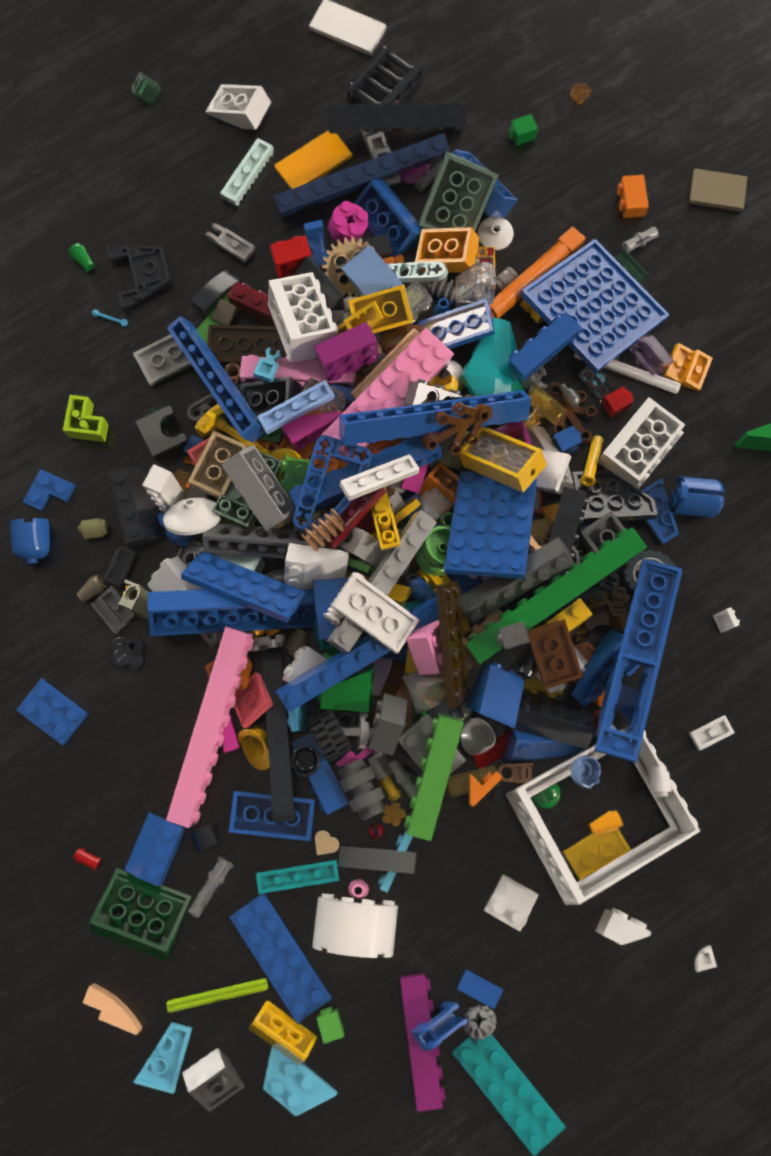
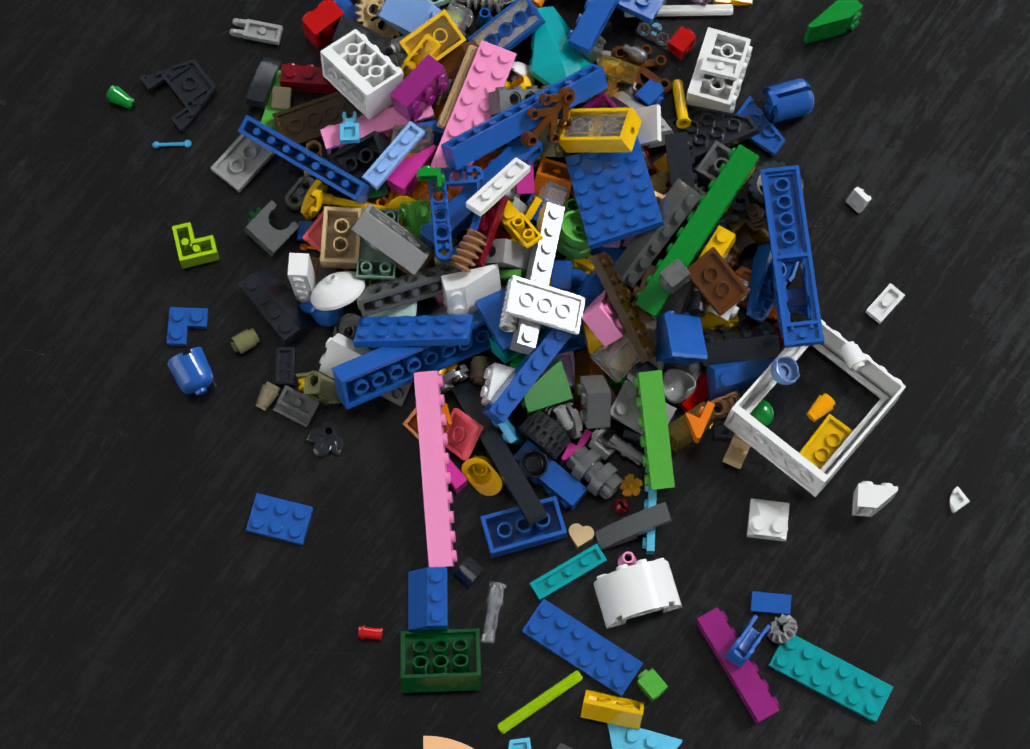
camera: 20 degrees left, 5 degrees down
(315, 438) = (427, 173): none -> green bracket
(353, 732) = (564, 417): none -> light grey pin
(390, 789) = (618, 463): yellow pin -> none
(409, 585) = (562, 274): none -> blue slope
(506, 825) = (736, 452): none -> tan bracket
(645, 440) = (720, 66): none -> white plate

